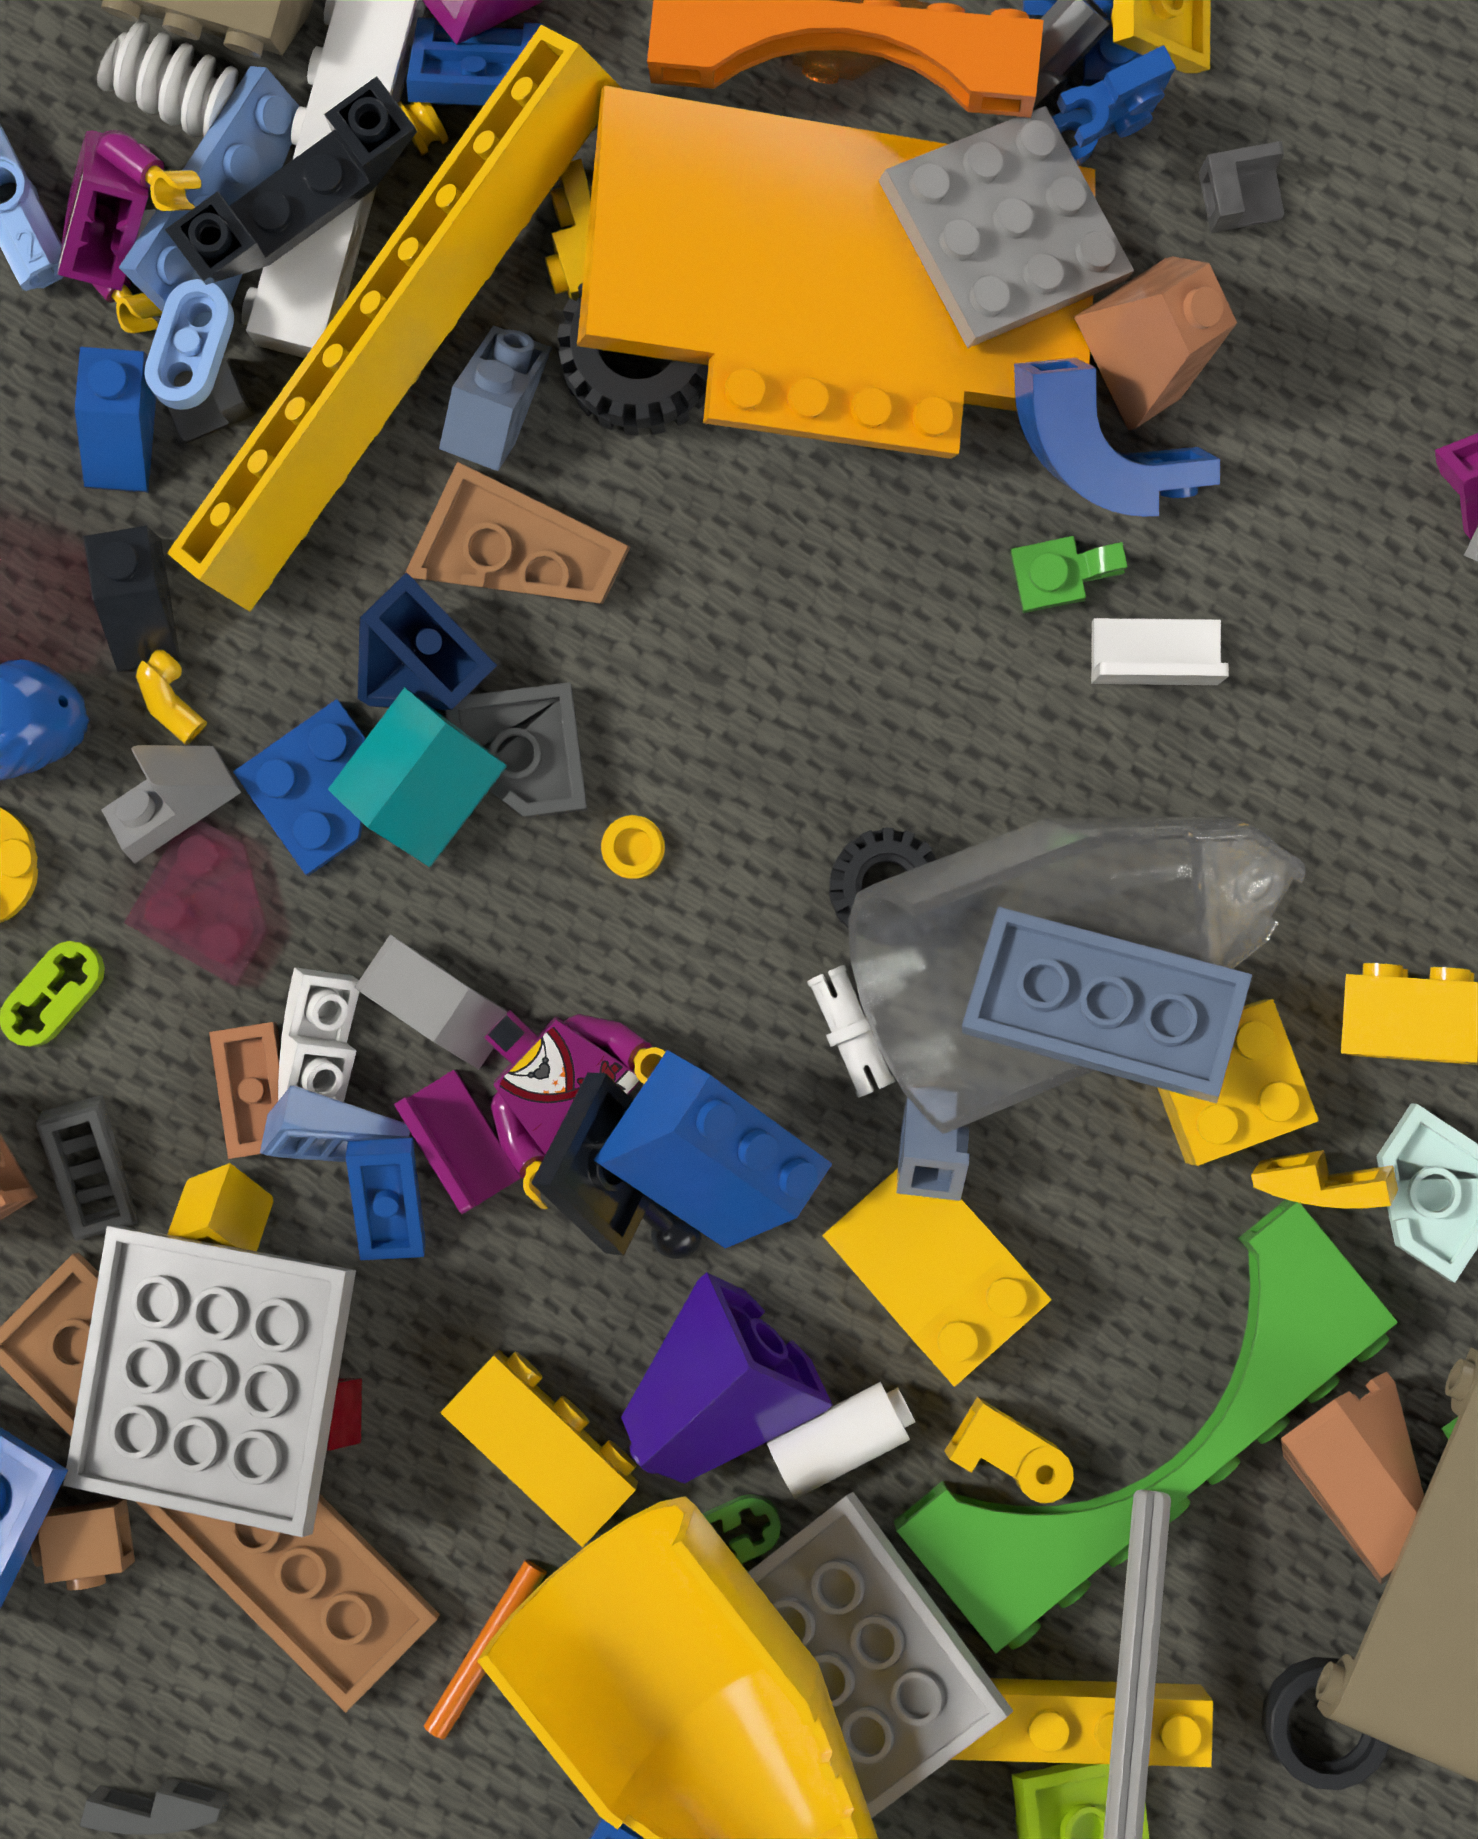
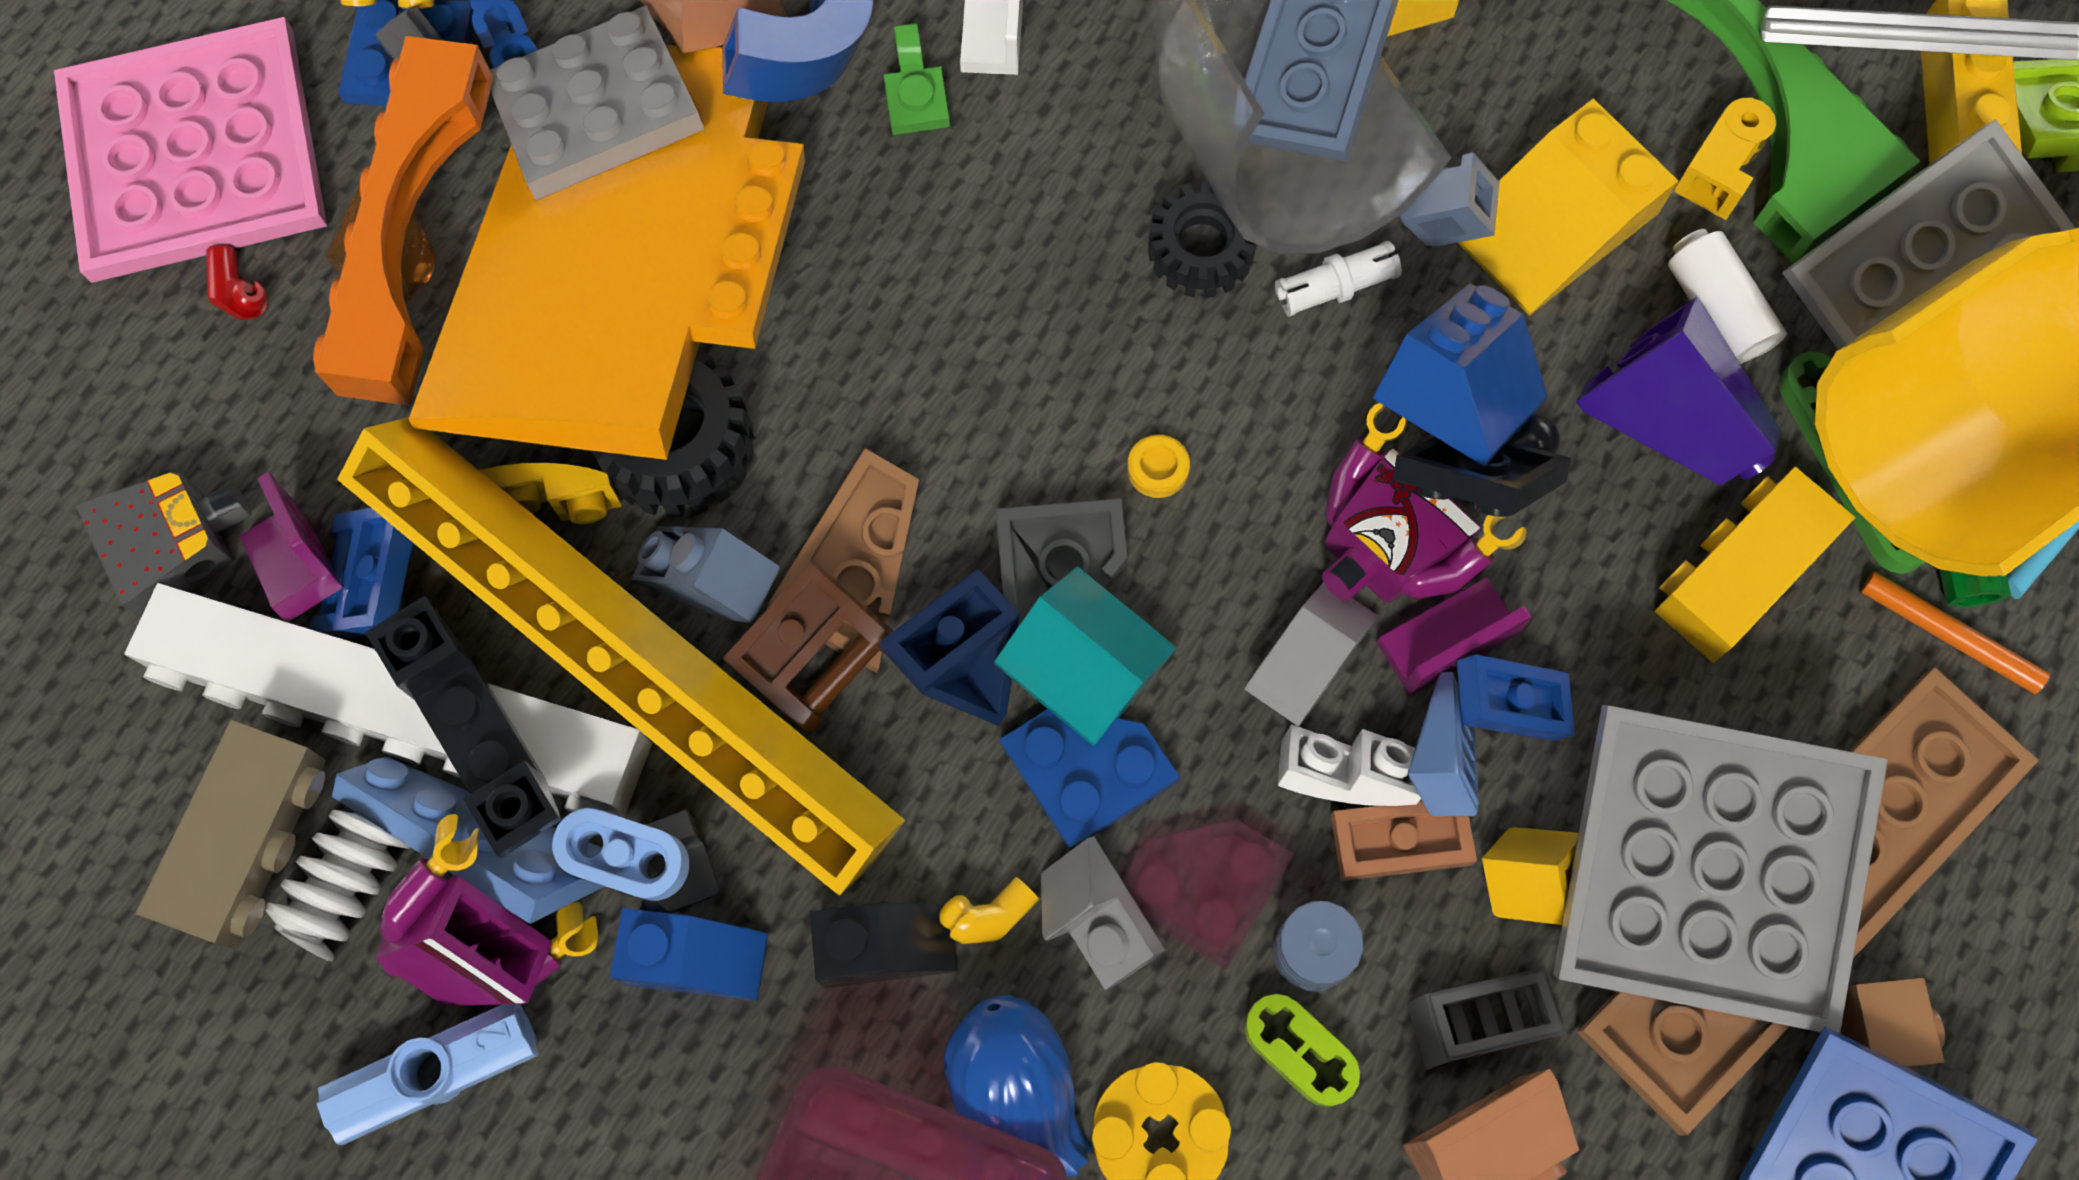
camera: 85 degrees left, 15 degrees down
(140, 1005) = (1317, 946): none -> sand blue piece
(427, 492) = (794, 632): none -> reddish brown plate

